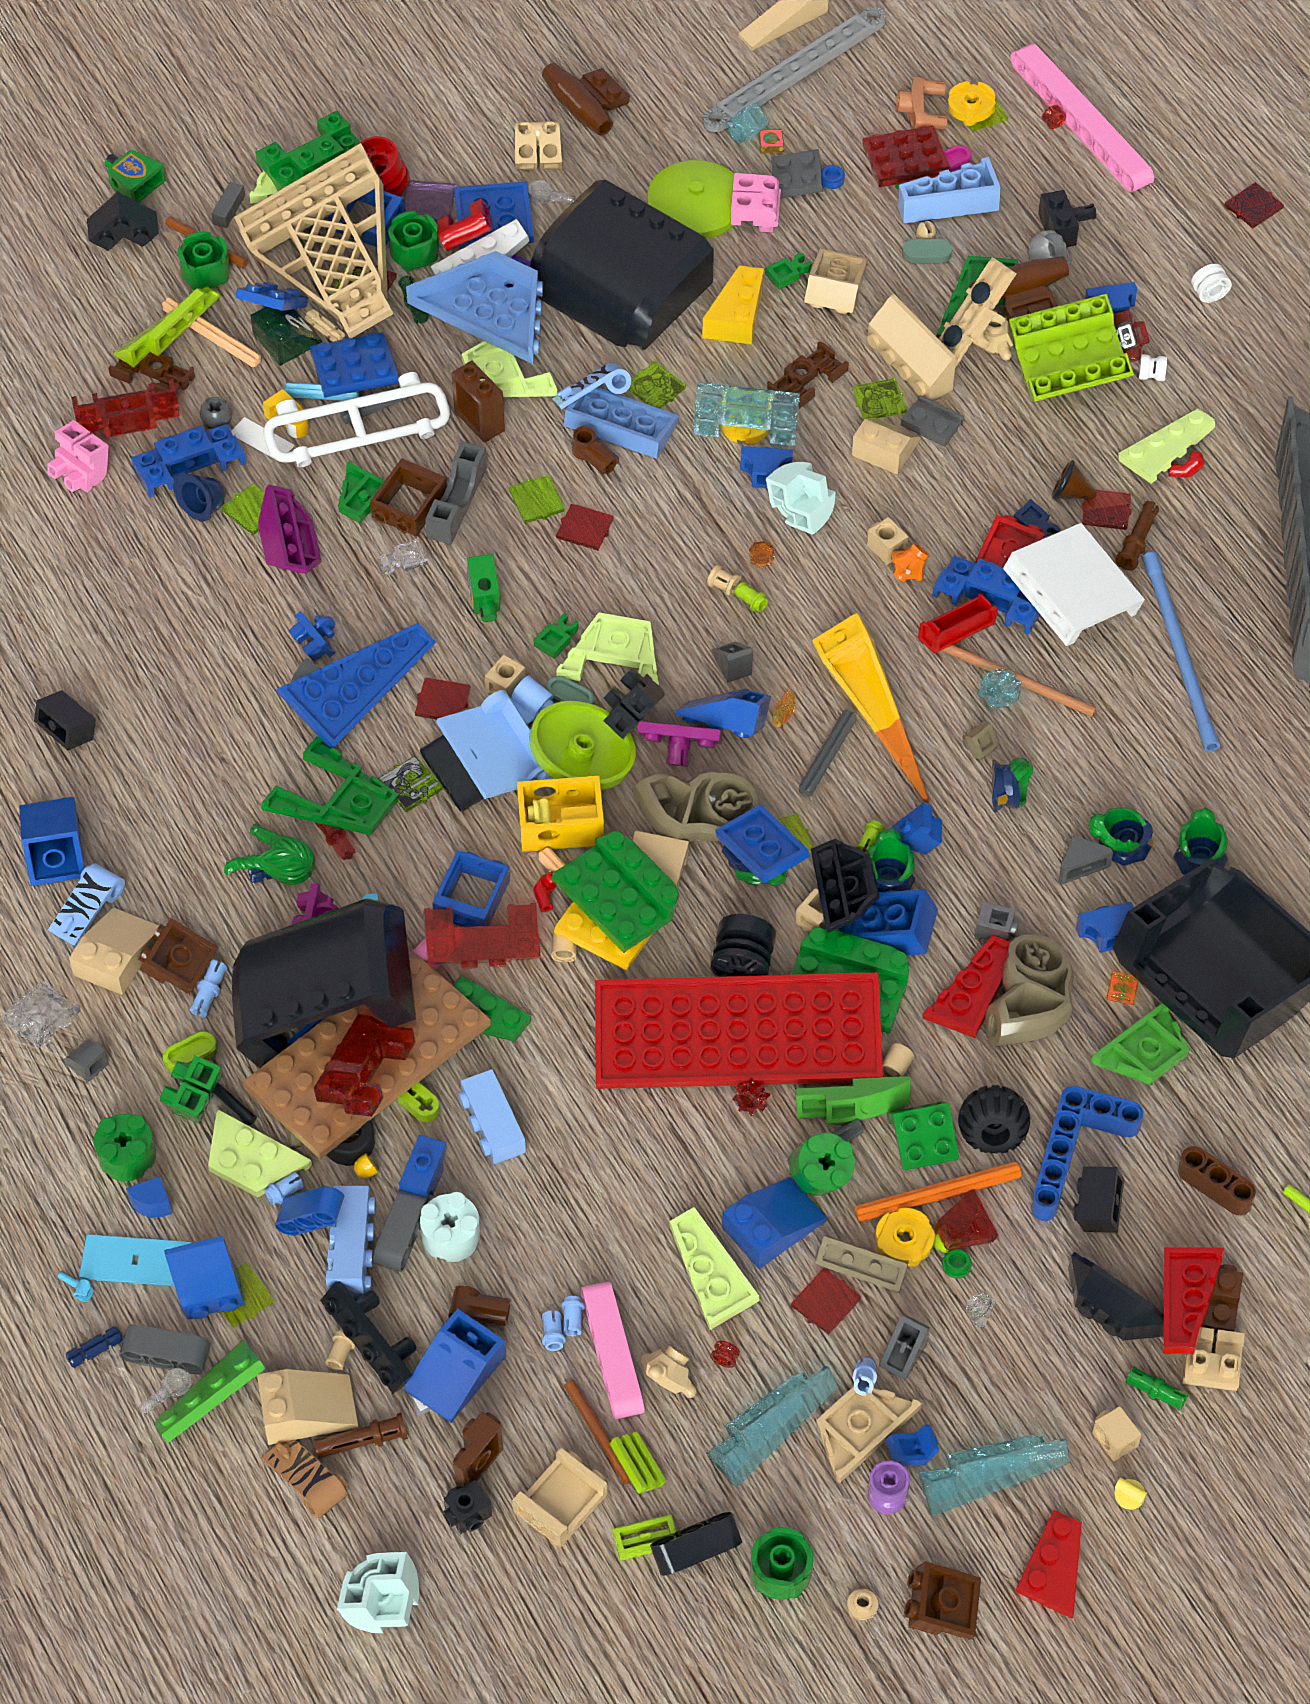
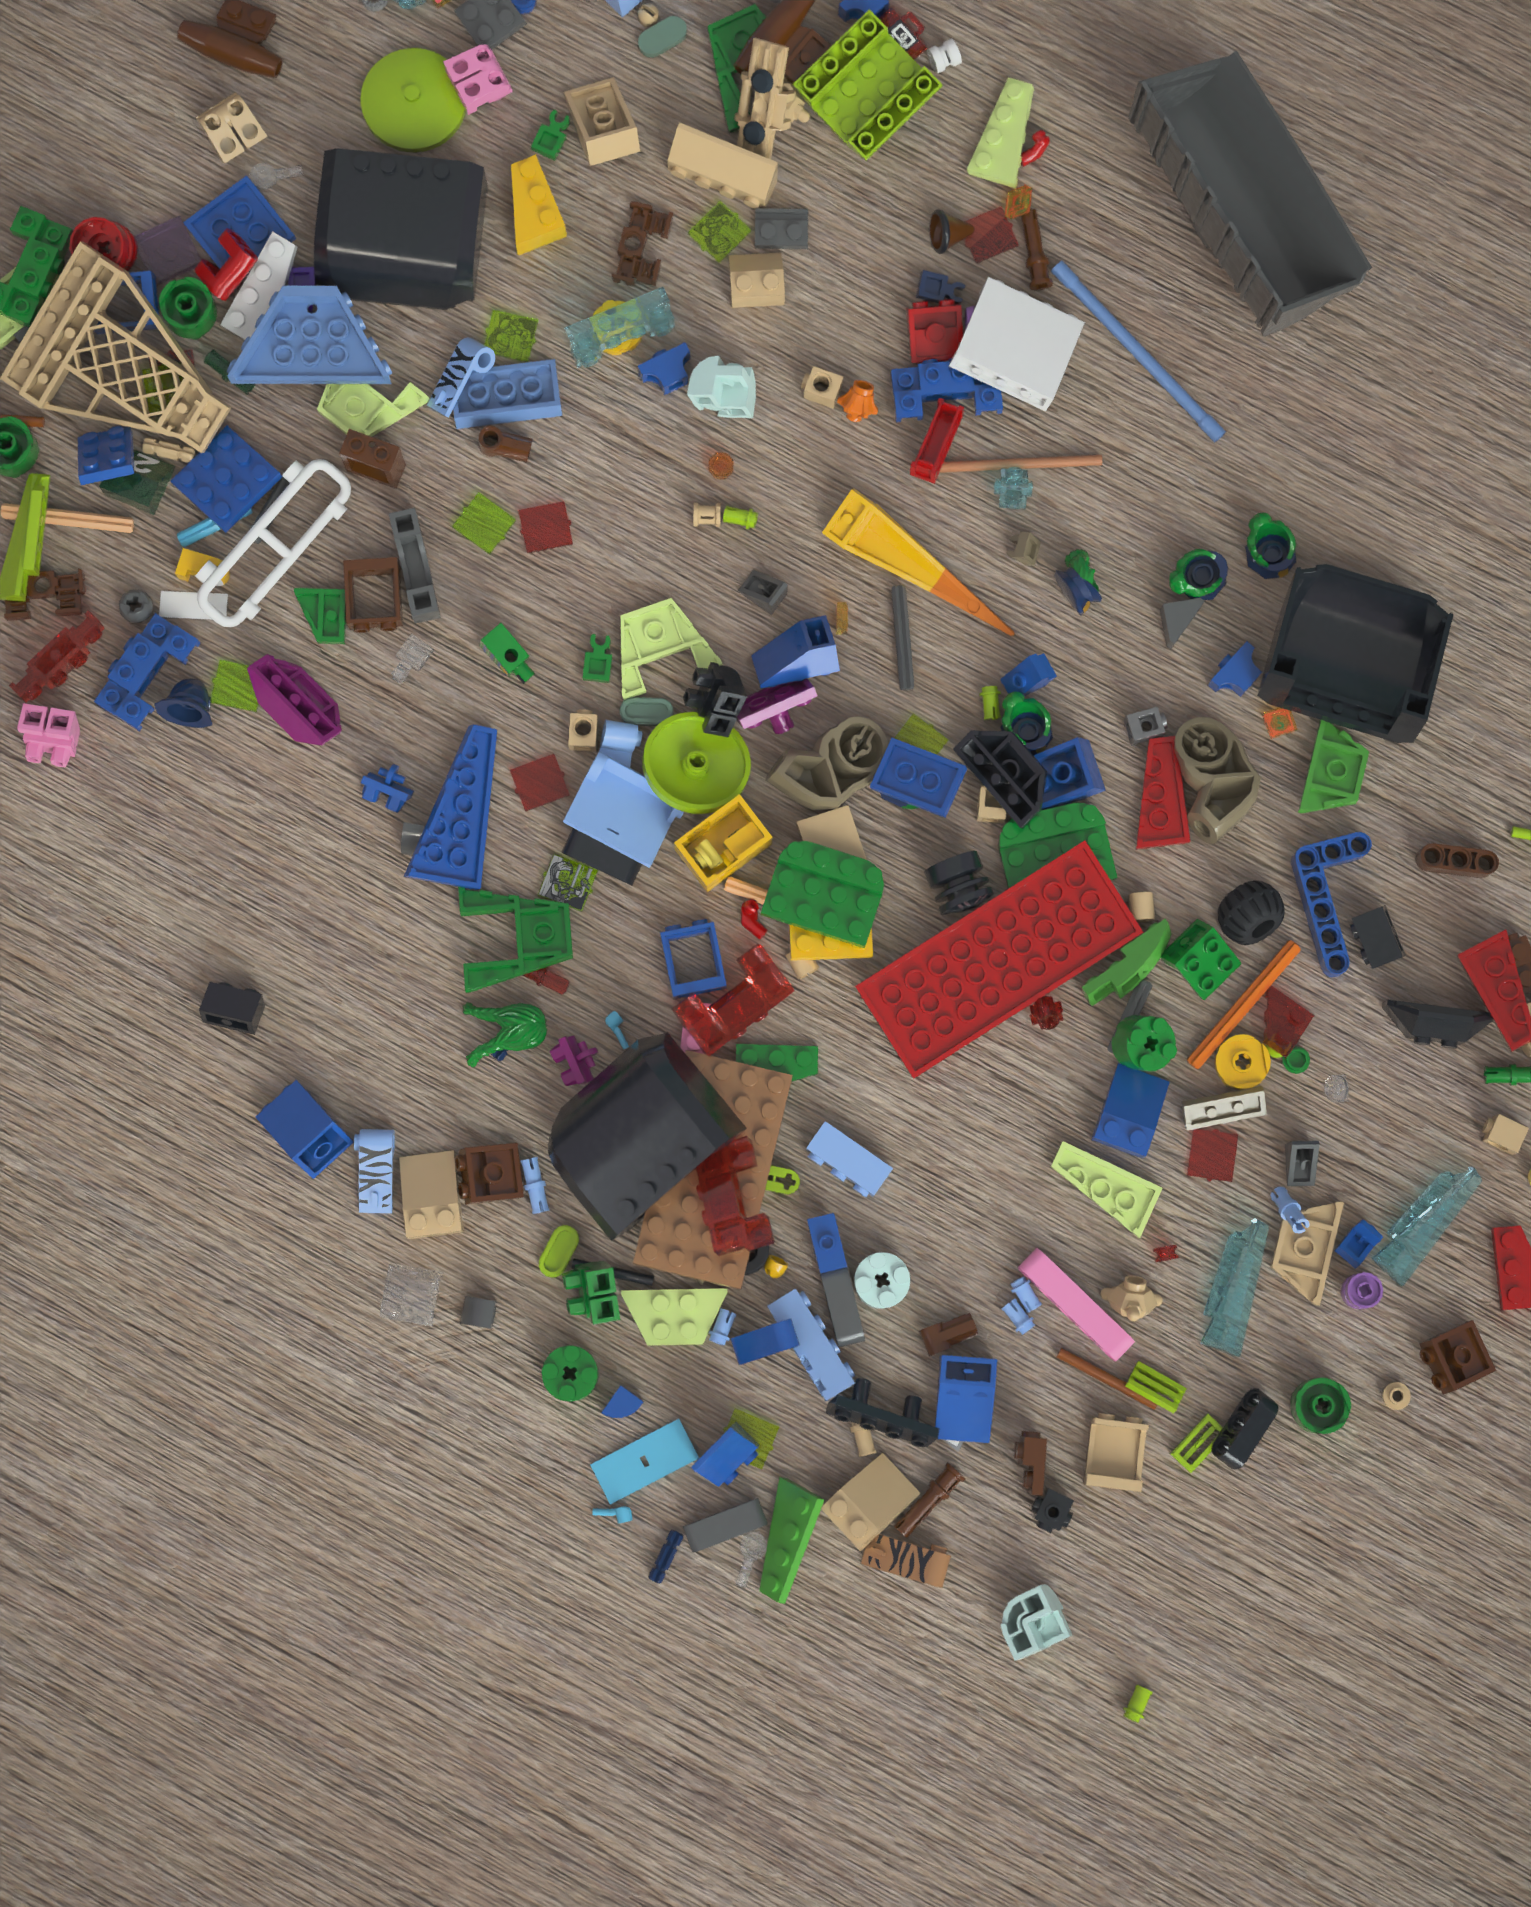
camera: 35 degrees left, 25 degrees up
(1146, 493) = (1018, 202): none -> clear yellow tile

